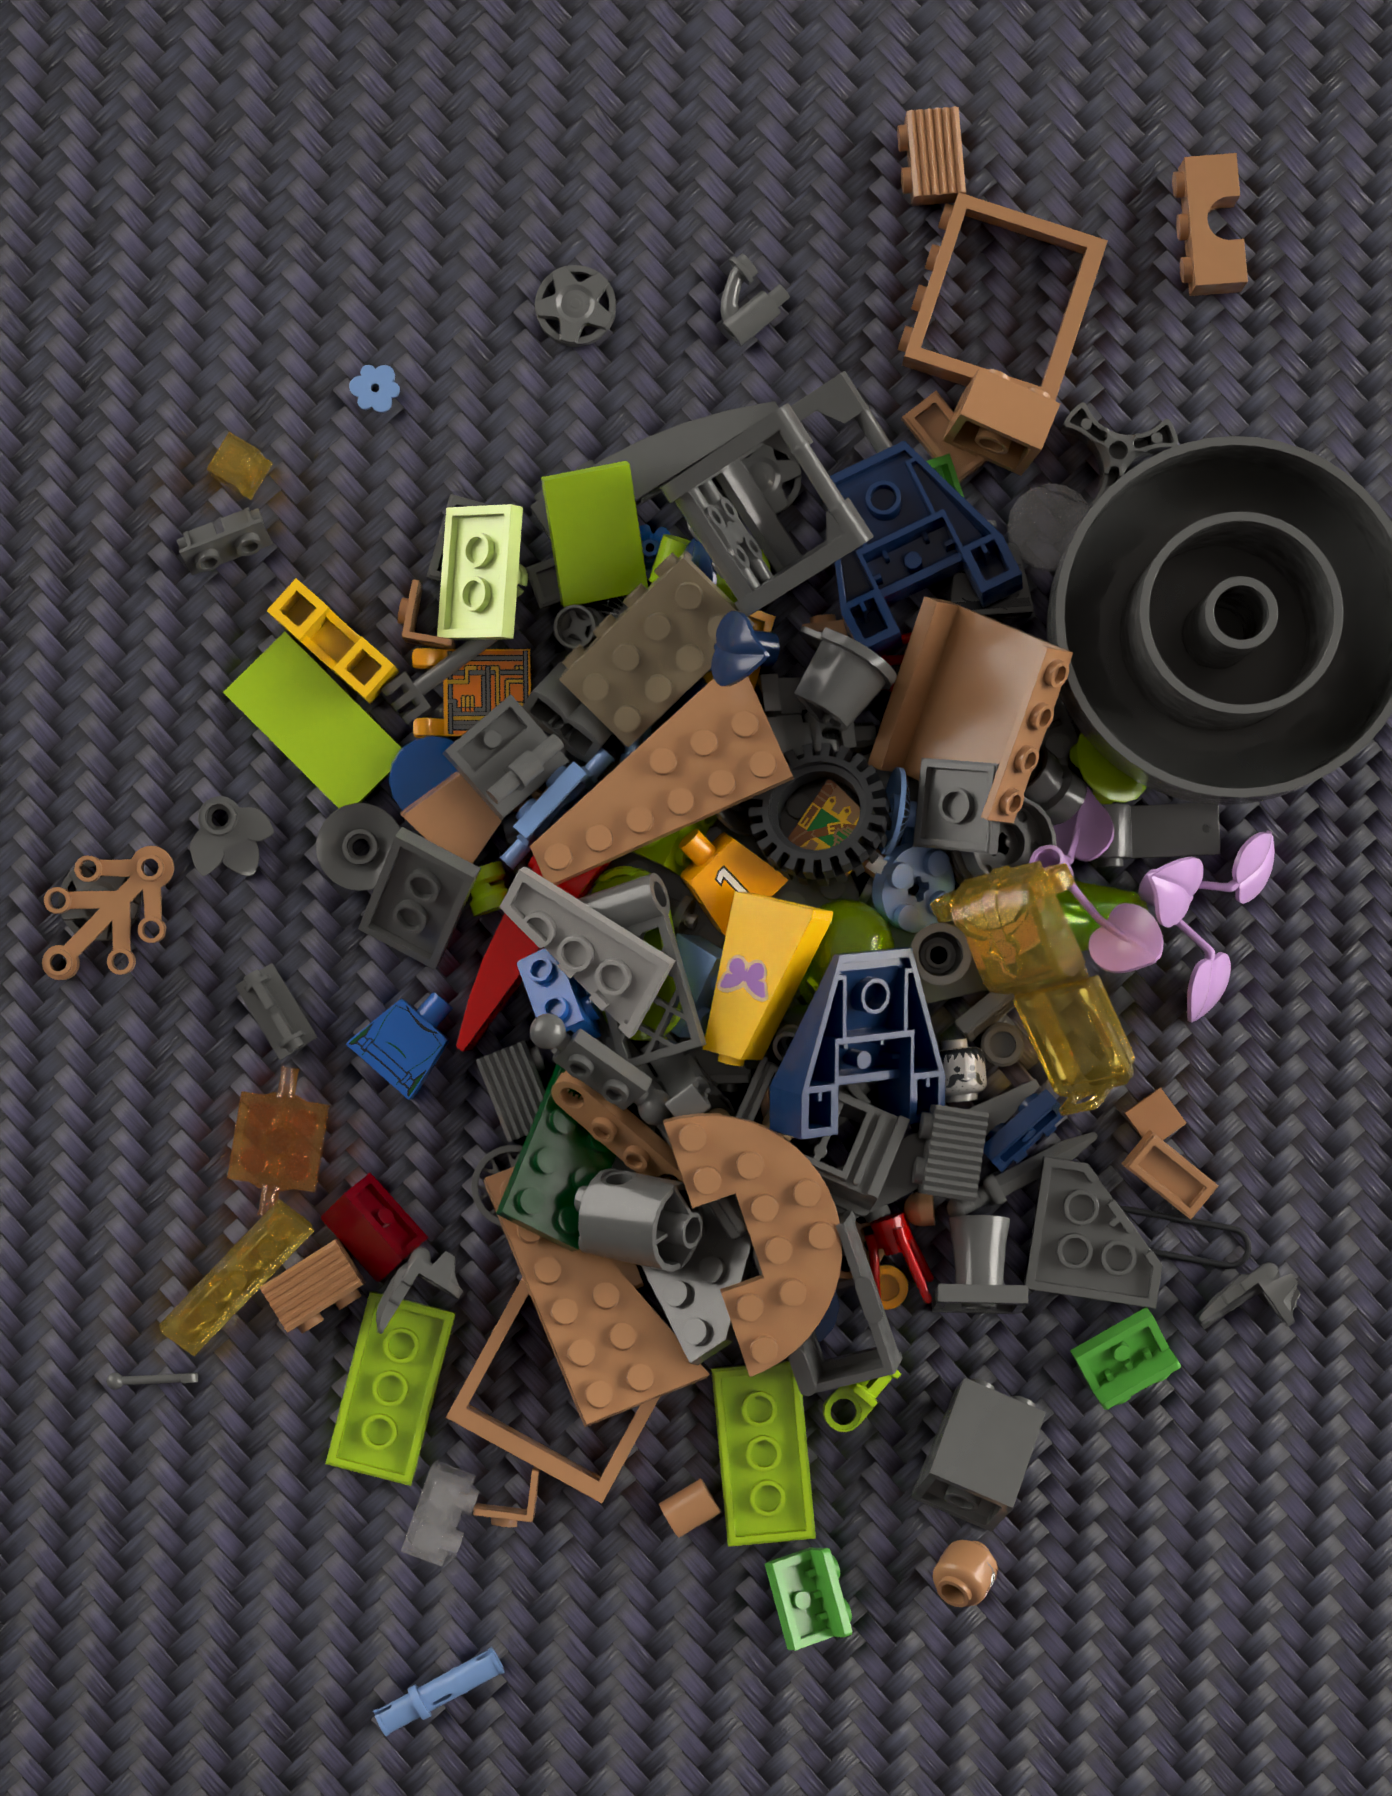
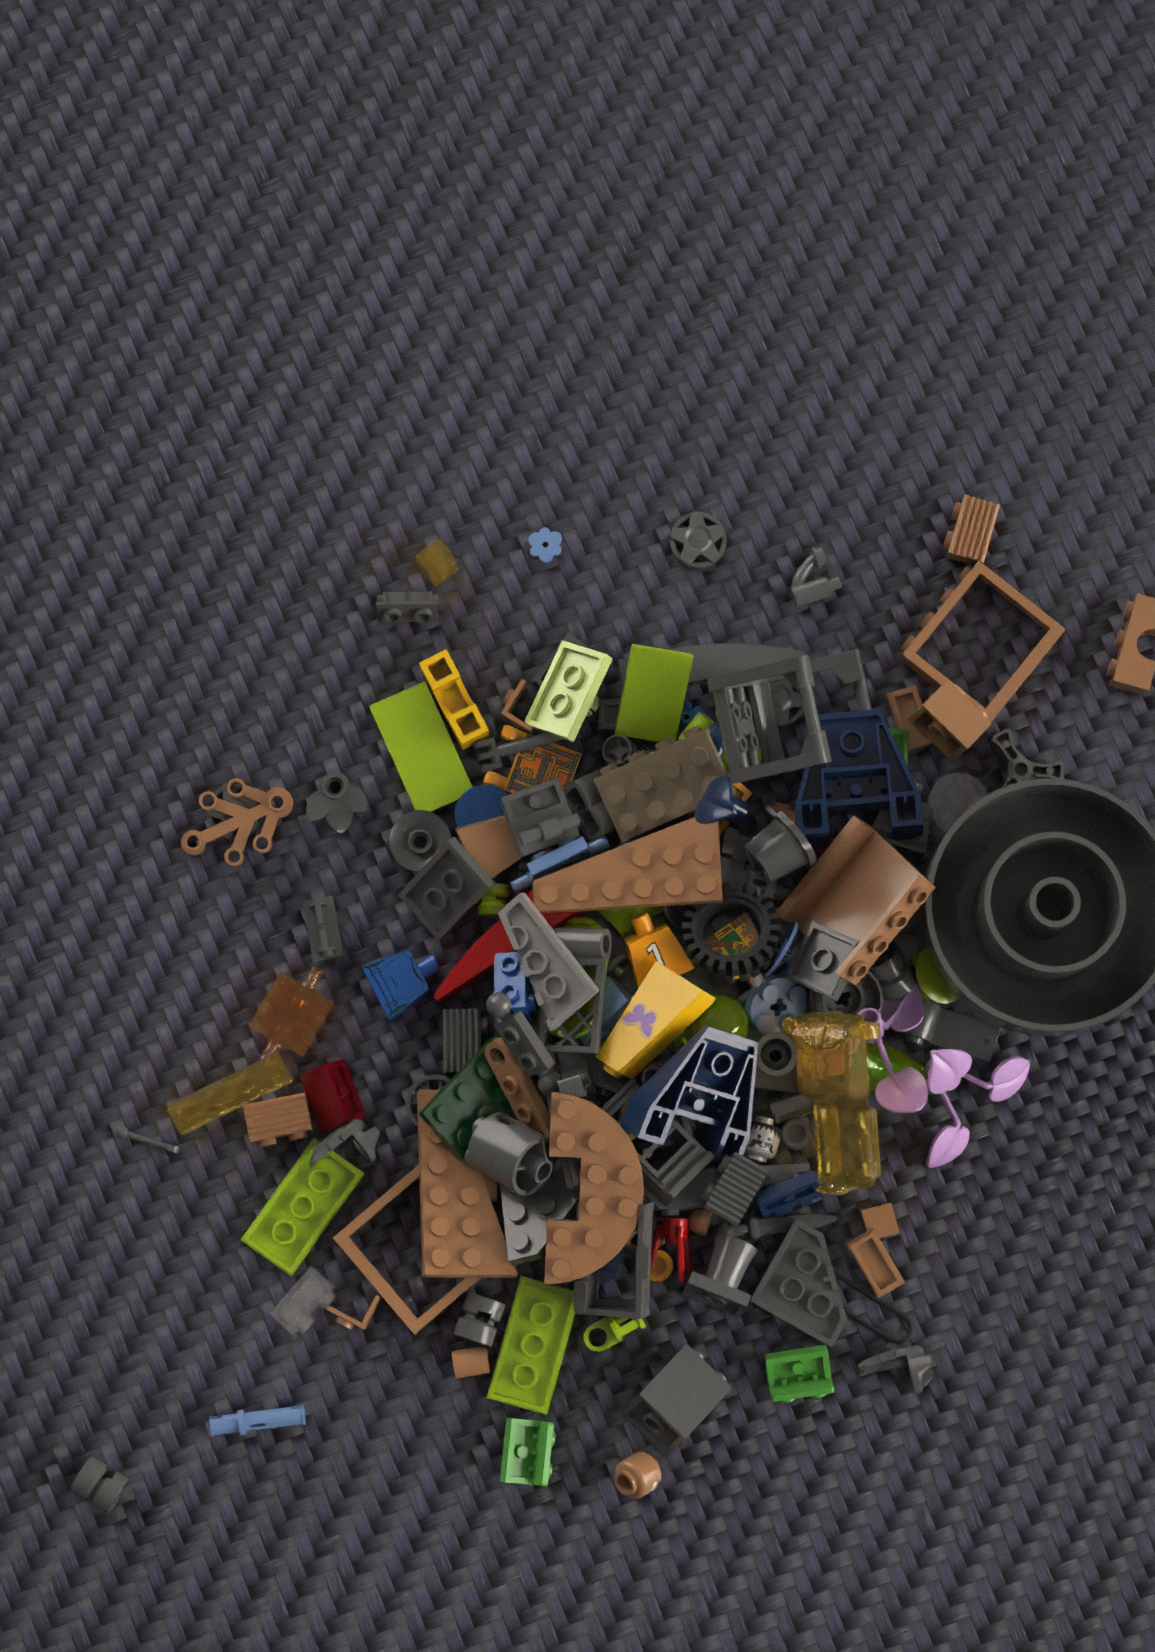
camera: 20 degrees right, 5 degrees down
(679, 1464) = (476, 1330): none -> dark grey wheel

